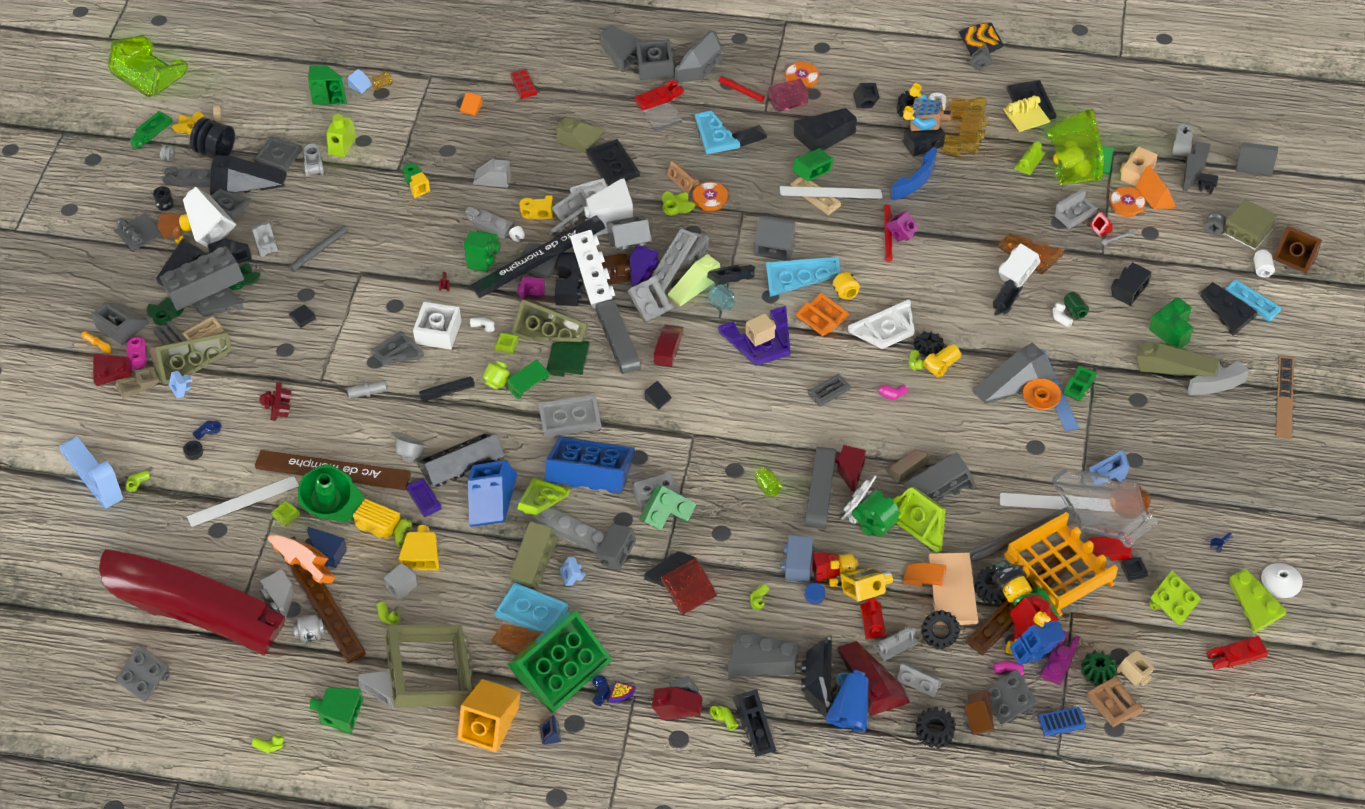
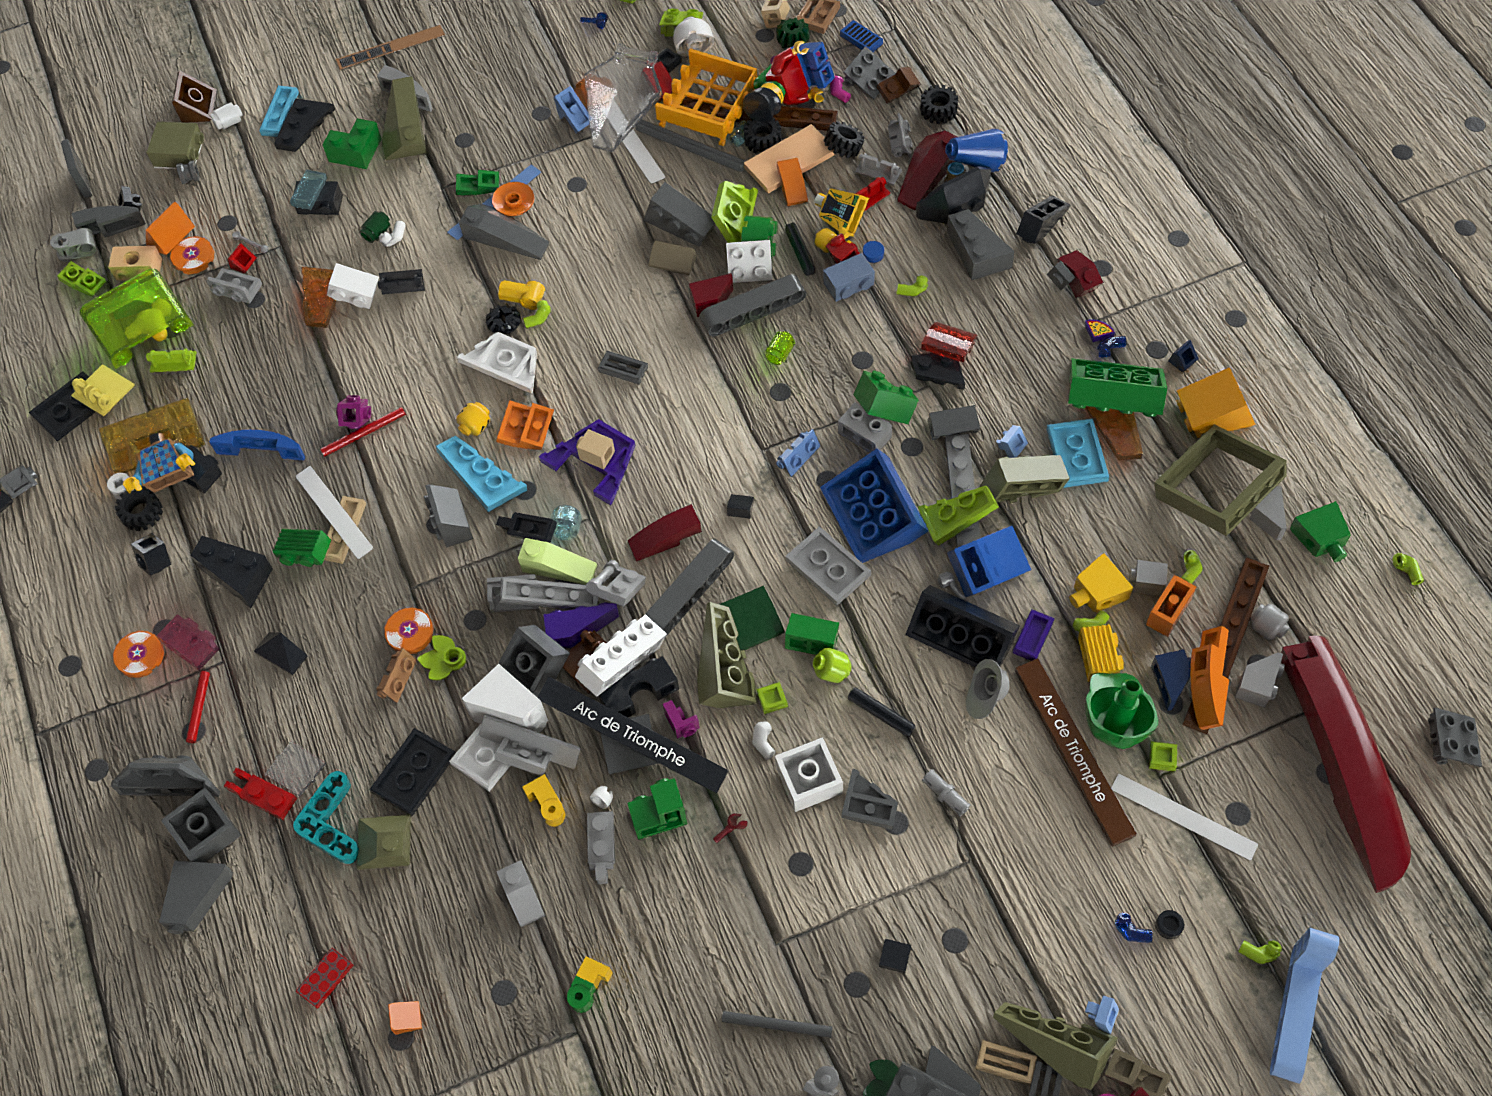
camera: 120 degrees left, 10 degrees up
(274, 399) = (1040, 879): dark red hips -> none
(369, 574) = (1171, 605): none -> orange brick
(620, 109) = (318, 819): none -> teal beam
(669, 443) = (801, 451): none -> medium blue hinge
(713, 133) = (302, 684): medium azure wing -> none
(724, 714) = (1052, 244): lime arm -> none
(854, 547) = (800, 249): none -> black axle
(891, 392) = (590, 312): dark pink arm -> none
(1134, 272) = (308, 189): none -> clear light blue tile
(1138, 583) = (692, 34): none -> white cylinder
(1149, 139) = (81, 279): none -> lime slope

